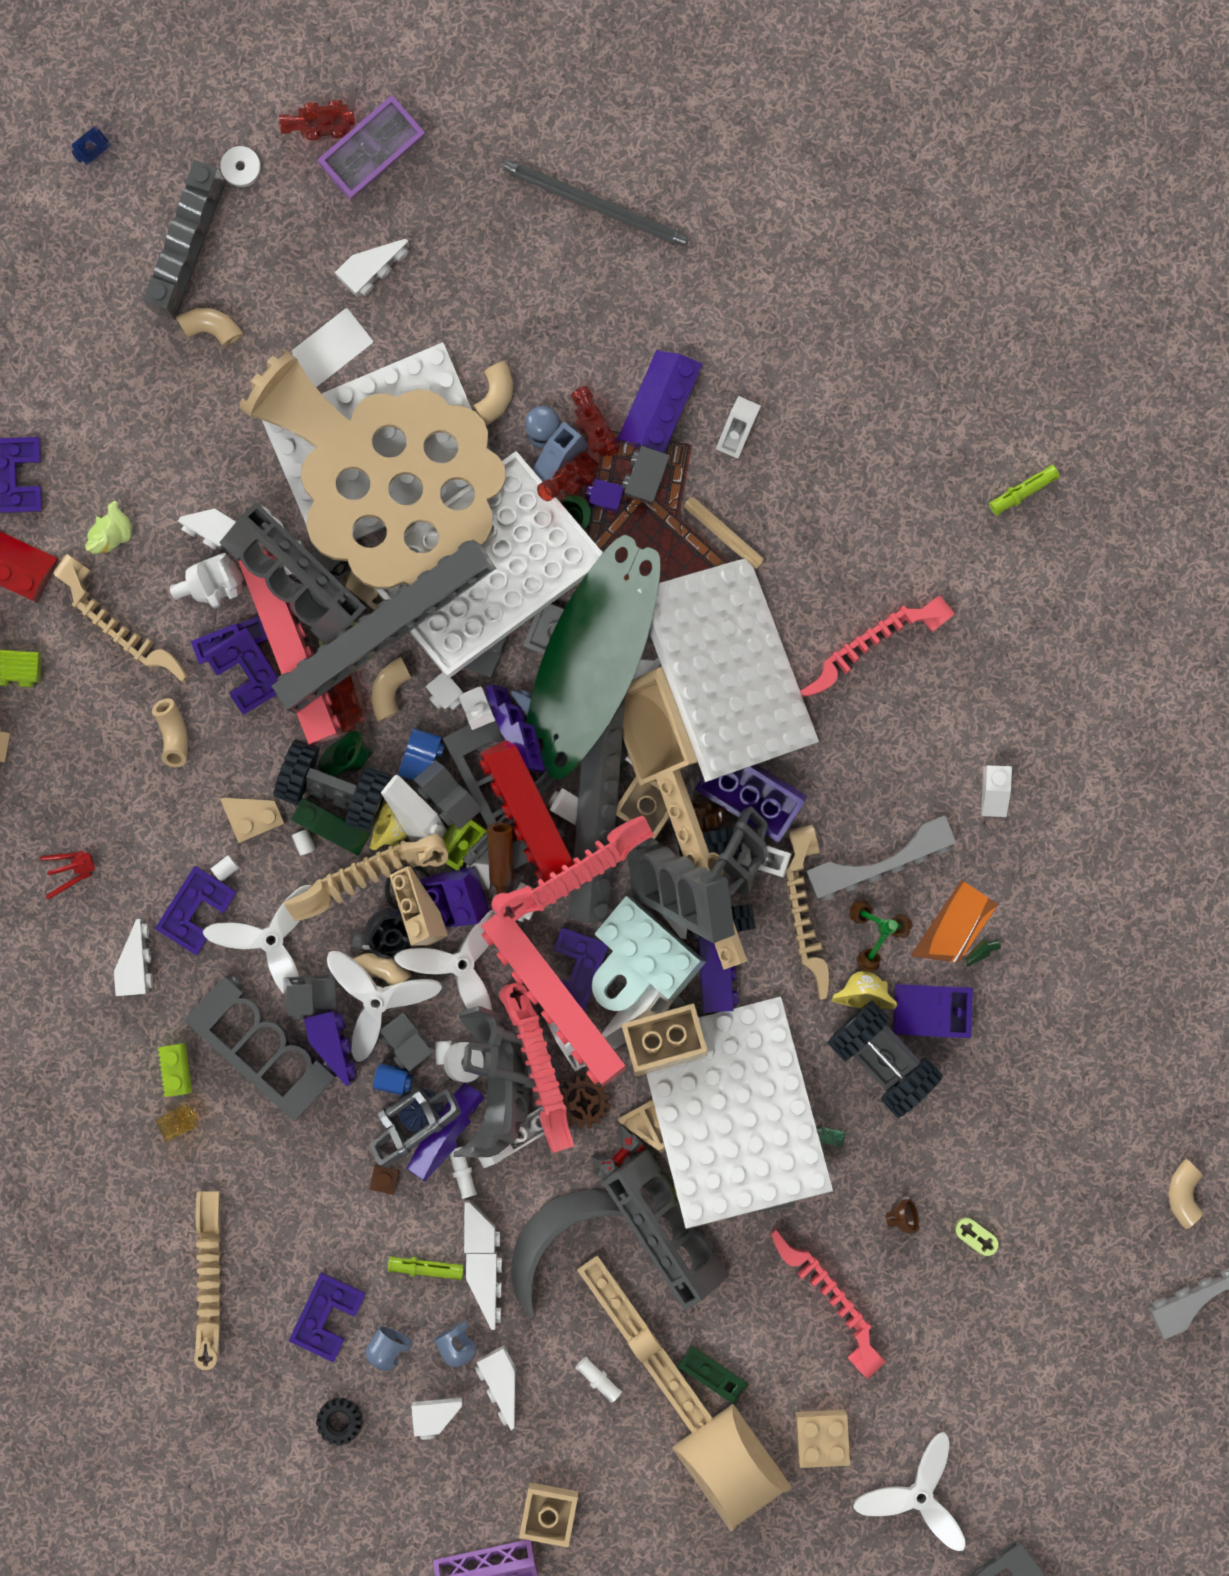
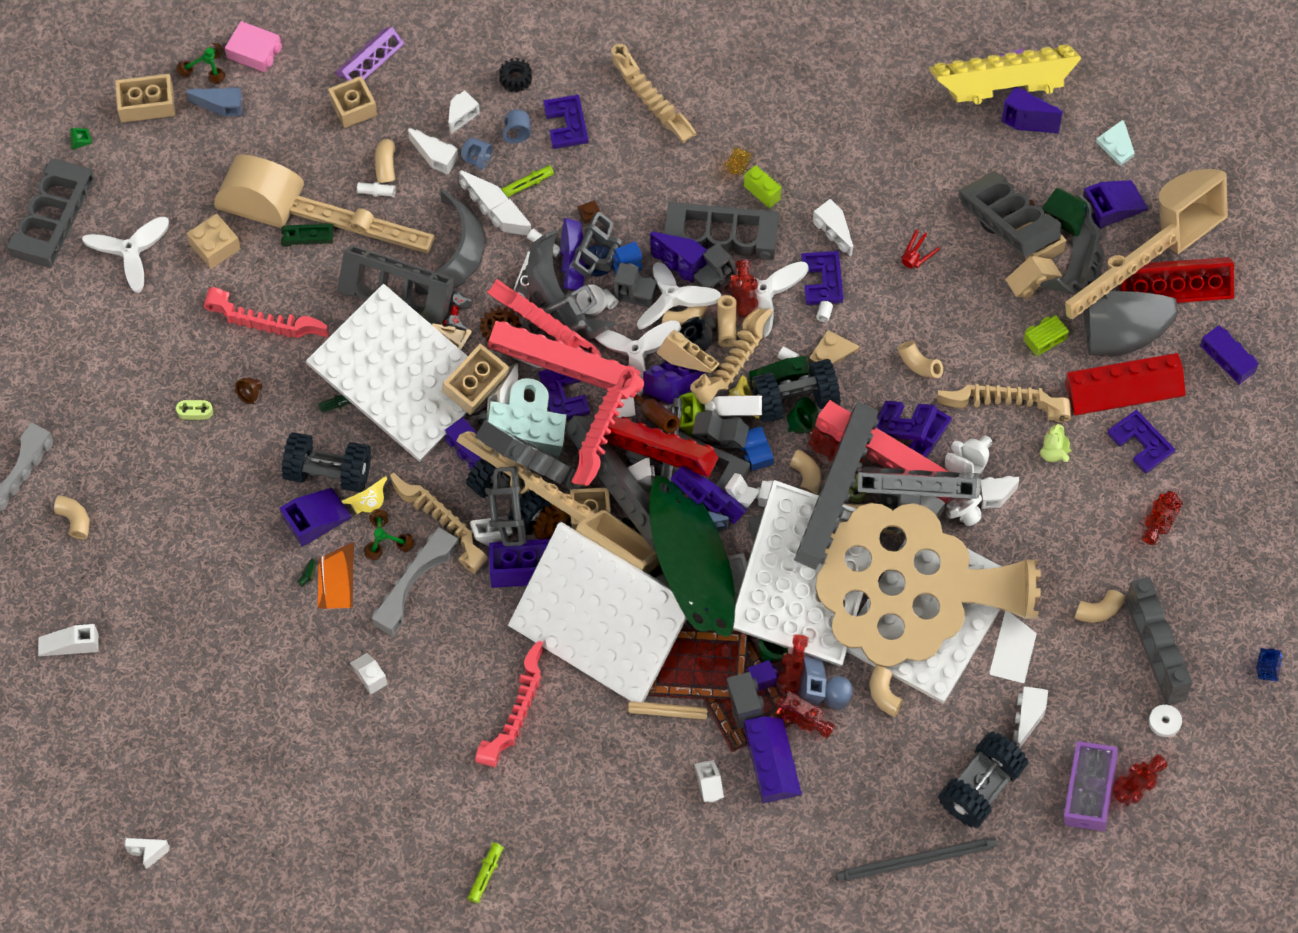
camera: 145 degrees right, 25 degrees down
(65, 375) = (1161, 517): none -> clear red brick
(298, 944) = (746, 290): none -> clear red brick
(341, 925) = (726, 321): none -> tan cylinder
(474, 225) = (983, 779): none -> black plate
(565, 1408) = (384, 161): none -> tan cylinder

